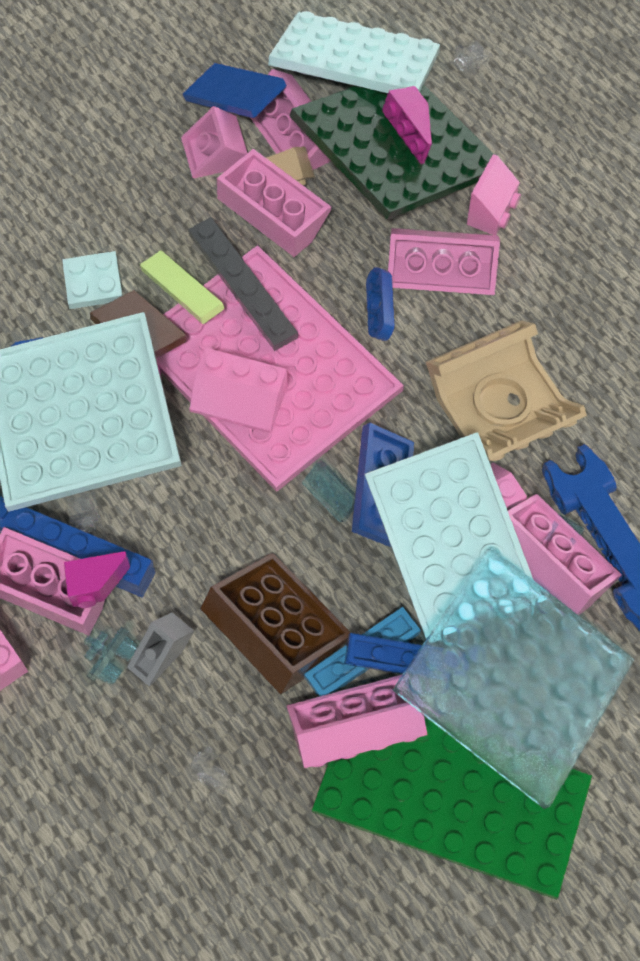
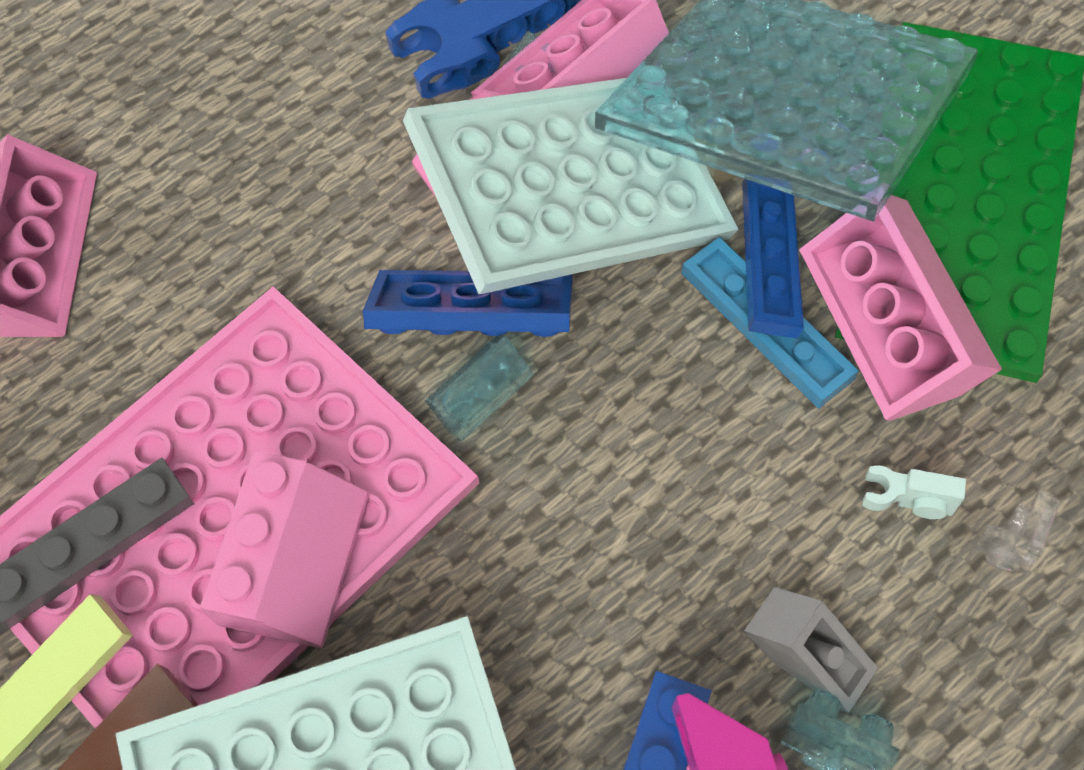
camera: 90 degrees left, 0 degrees up
(239, 725) = (925, 492): none -> light aqua plate
(274, 621) = (733, 458): reddish brown slope -> none
(380, 317) = (86, 349): blue beam -> none
(475, 387) = (350, 155): tan panel -> none

